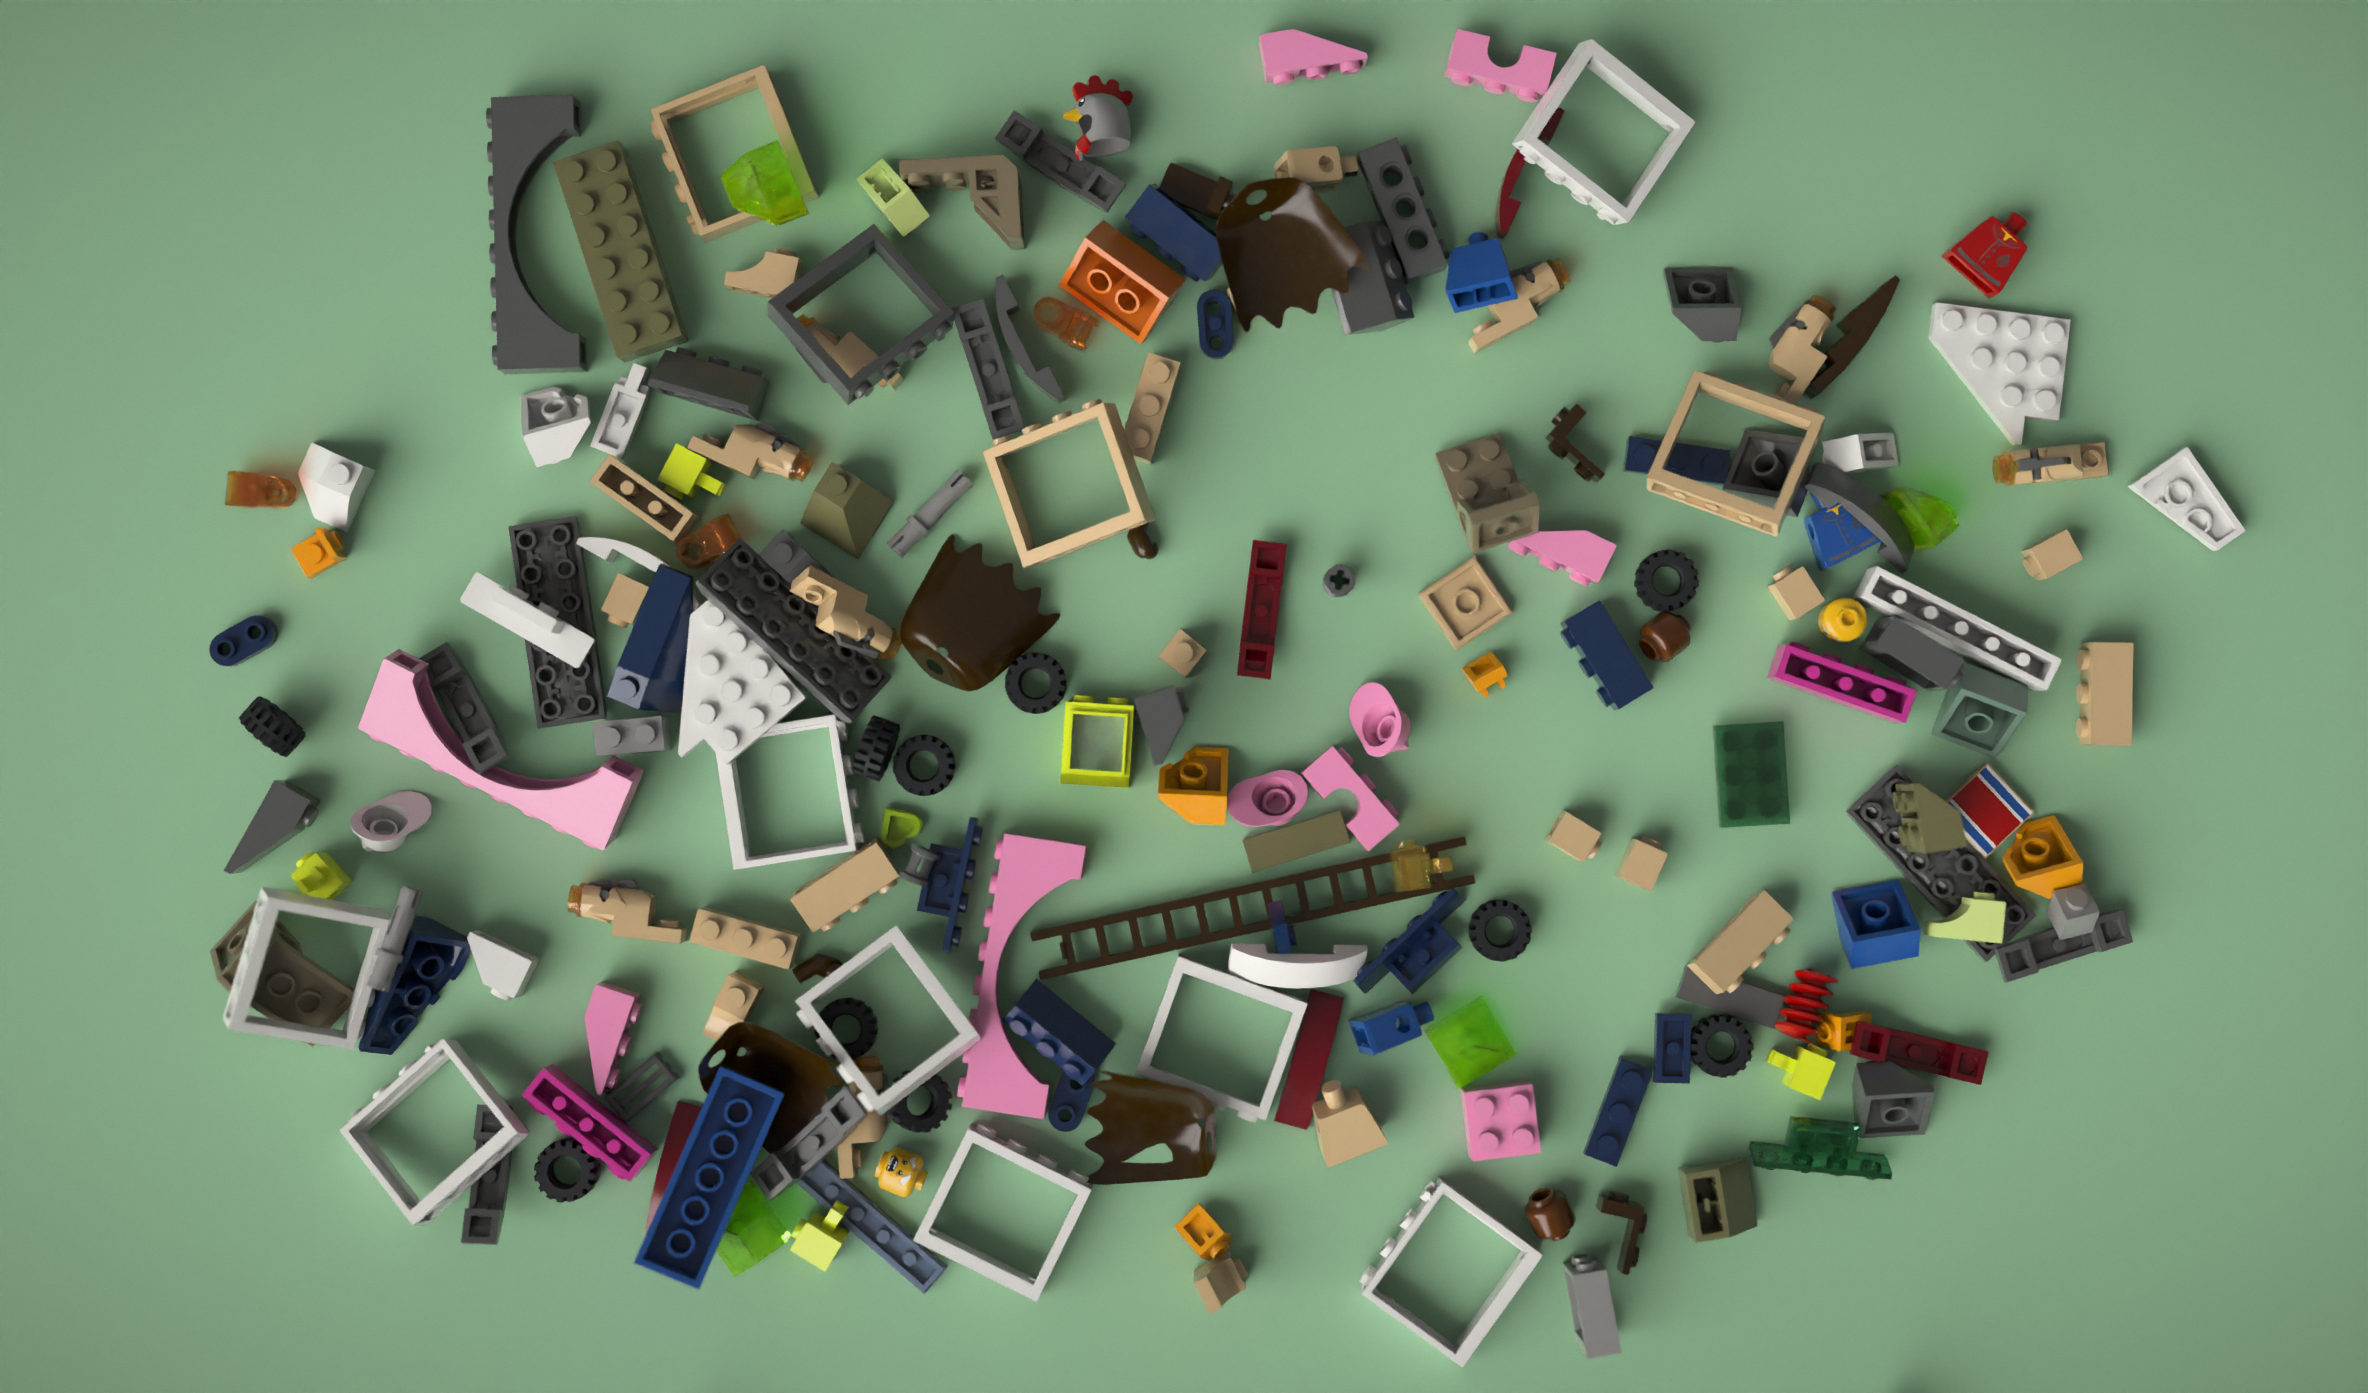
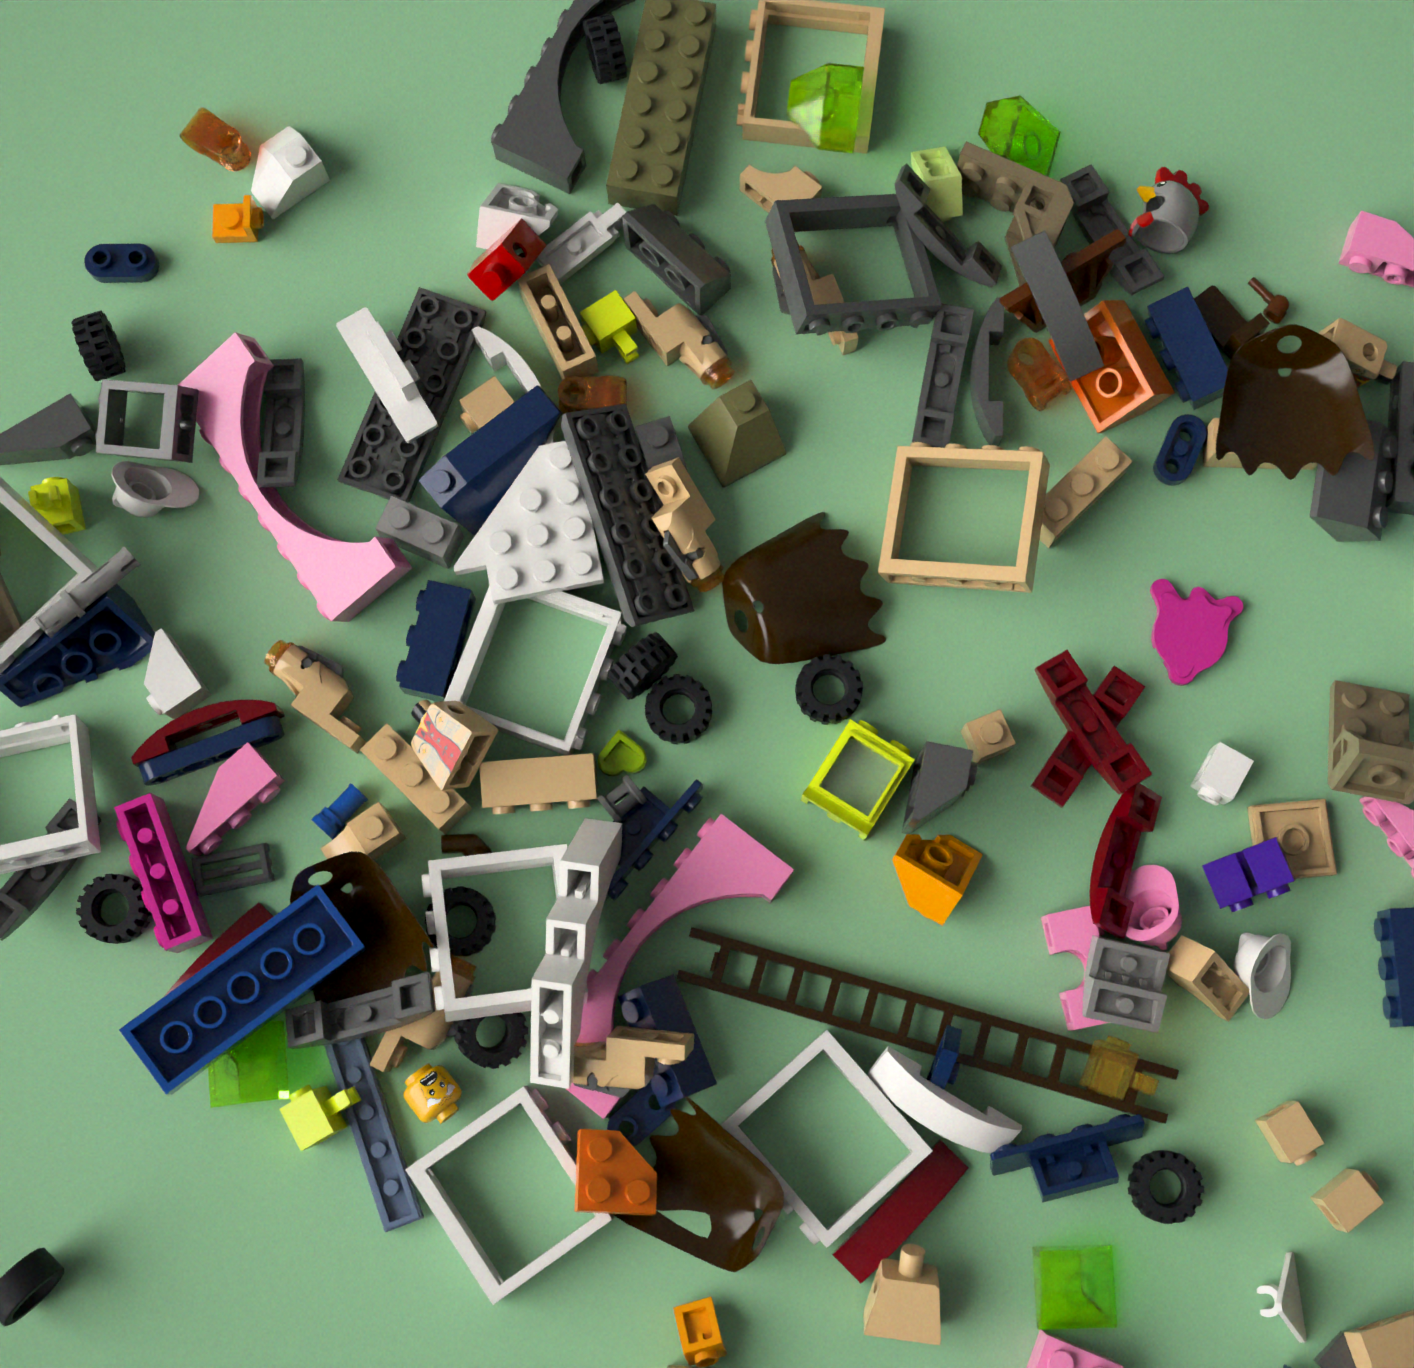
camera: 35 degrees right, 10 degrees down
(379, 756) = (176, 427): none -> dark grey window
(526, 1021) = (200, 721): none -> dark red slope
(545, 230) = (605, 48): none -> black tyre
(568, 1005) = (210, 750): none -> dark blue beam
(569, 483) = (500, 265): none -> red torso
(697, 817) = (435, 640): none -> dark blue brick
(698, 1004) = (332, 819): none -> blue pin
(758, 896) = (451, 741): none -> tan torso
(919, 249) = (971, 262): none -> dark grey slope
(929, 514) = (824, 477): light grey pin -> none
(941, 1003) = (570, 938): none -> white arch
(943, 122) = (1019, 133): none -> clear neon green slope
(1032, 1070) = (627, 1058): none -> tan plate
(1047, 239) = (1084, 271): none -> reddish brown wing
(1049, 265) = (1058, 305): none -> dark grey slope
(1074, 1157) = (612, 1175): none -> orange plate
(1141, 542) = (1002, 611): dark brown arm -> none
(1233, 152) = (1277, 304): none -> reddish brown hand
(1258, 599) = (1089, 725): none -> dark red slope
(1268, 799) = (1000, 923): bright pink piece -> none
(1296, 841) = (1003, 982): olive tile -> none
(1301, 473) = (1190, 631): none -> dark pink tile
(1330, 586) = (1188, 752): dark grey bush -> none
(1333, 696) = (1115, 856): none -> dark red slope
(1378, 1031) = (1003, 1222): blue torso -> none
(1382, 582) = (1221, 774): none -> white brick
(1388, 794) = (1125, 984): none -> light grey slope
(1443, 652) = (1249, 873): none -> dark purple piece
(1450, 752) = (1206, 977): none -> tan arch
(1485, 672) = (1280, 917): light orange tile -> none
(1494, 722) = (1265, 969): none -> white piece
(1632, 964) = (1287, 1299): none -> white piece

